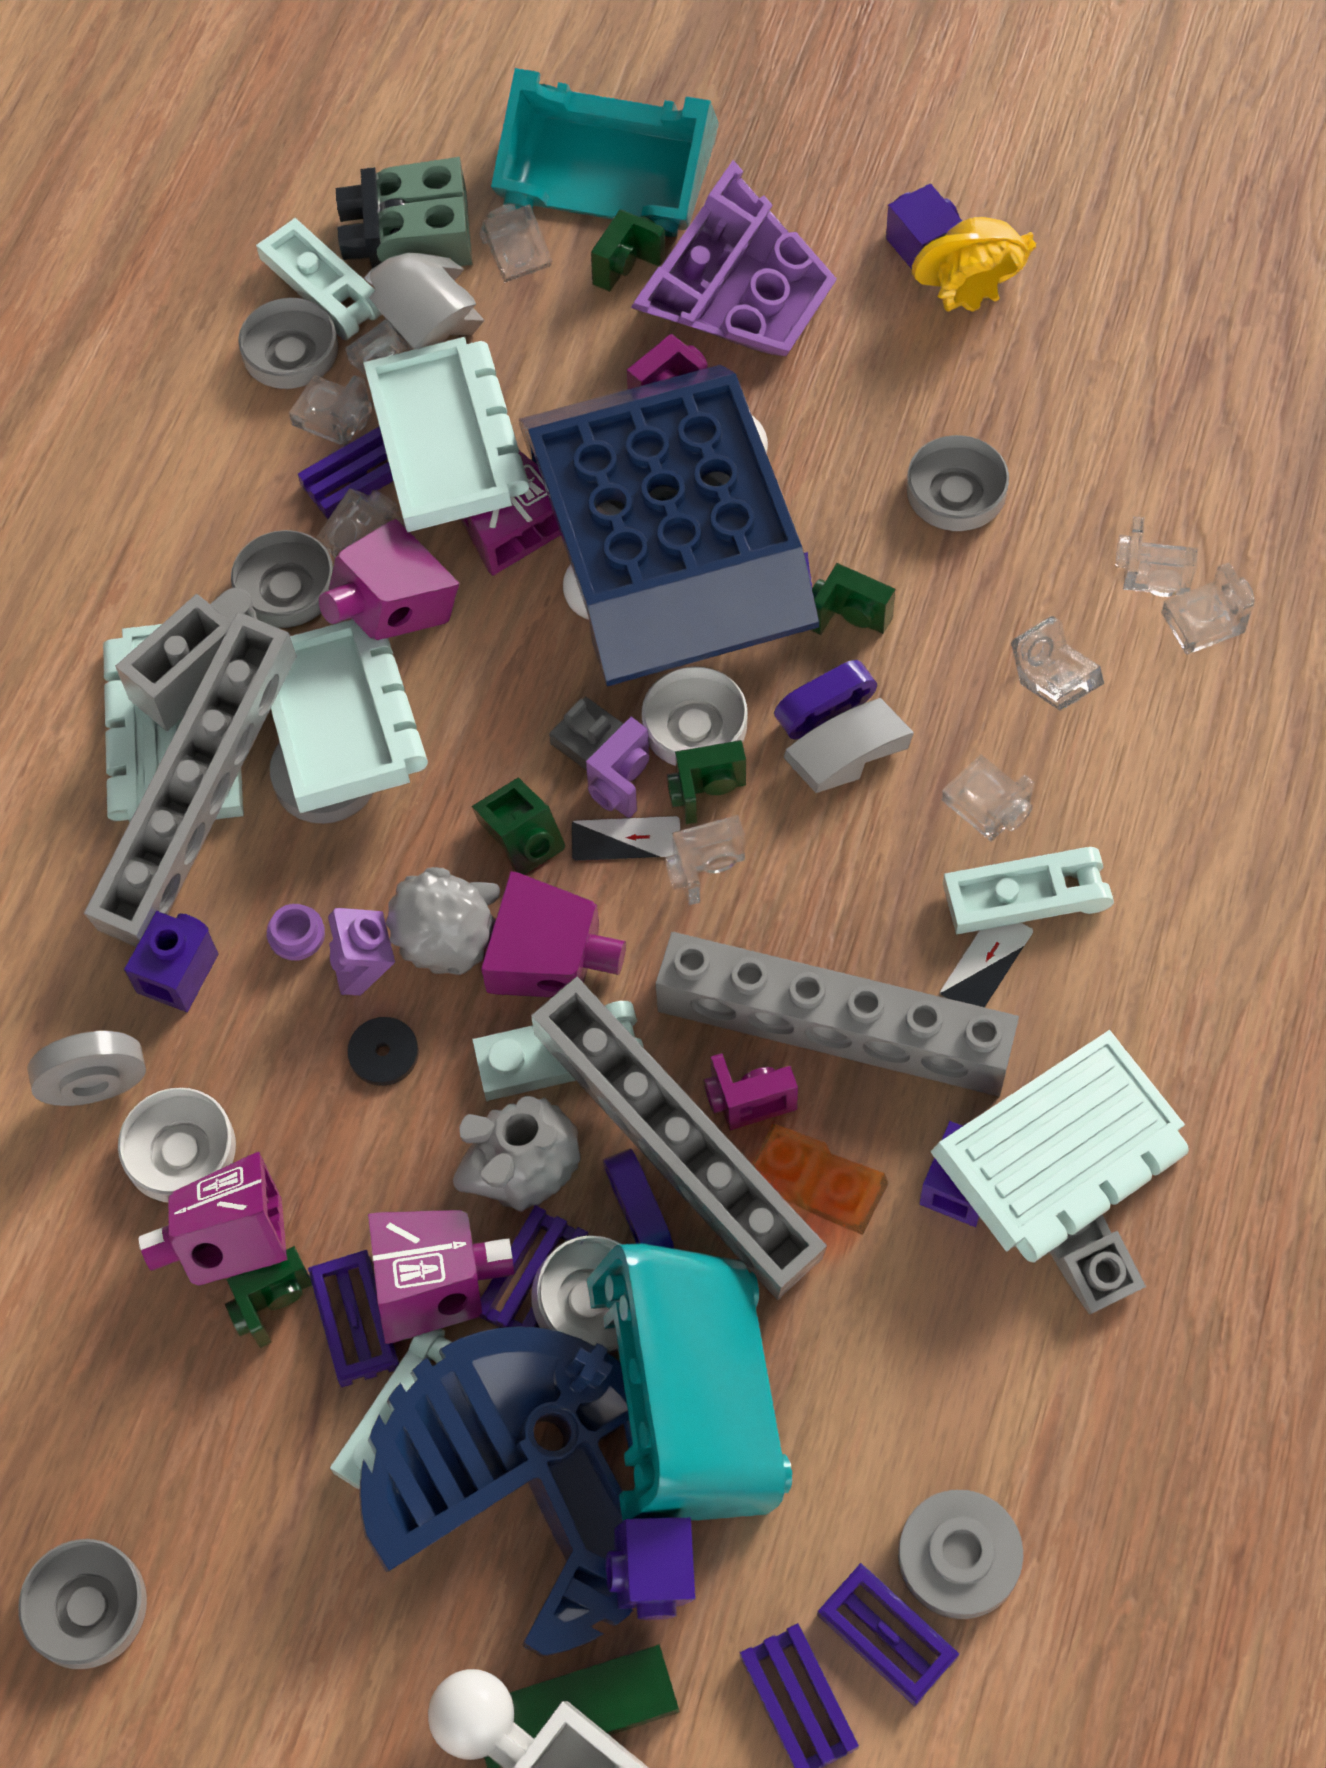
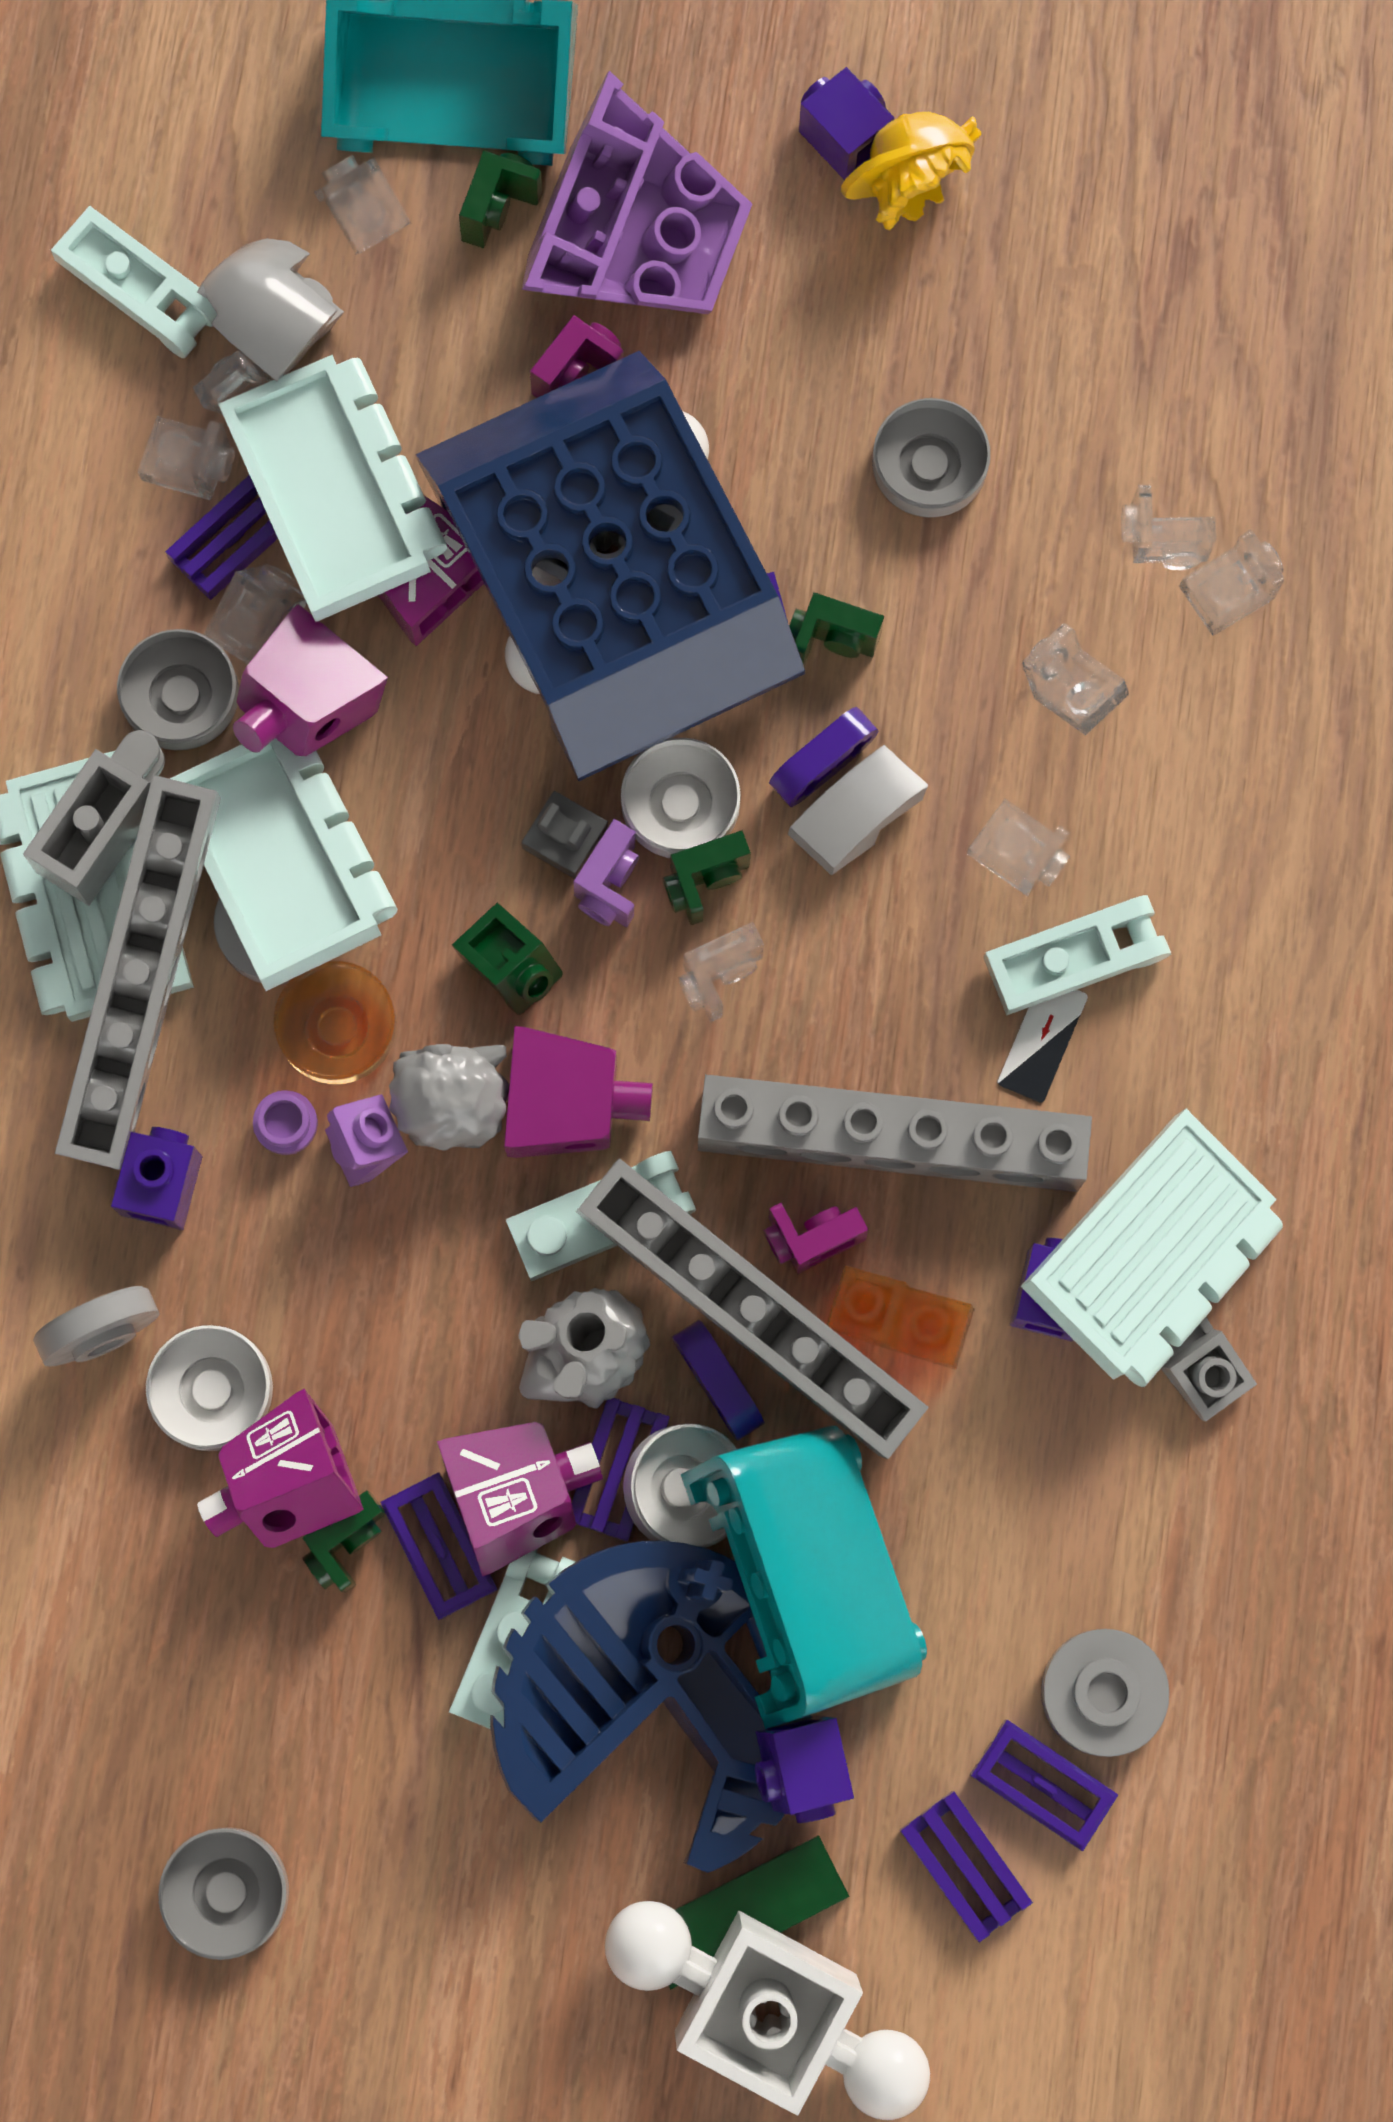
camera: 15 degrees left, 15 degrees up
(288, 343) = (116, 375): light grey piece -> none
(357, 856) = (335, 1022): none -> clear orange piece
(388, 1068) = (414, 1263): black wheel -> none
(406, 211) = (228, 183): sand green hips -> none
(623, 838) = (626, 952): sticker -> none

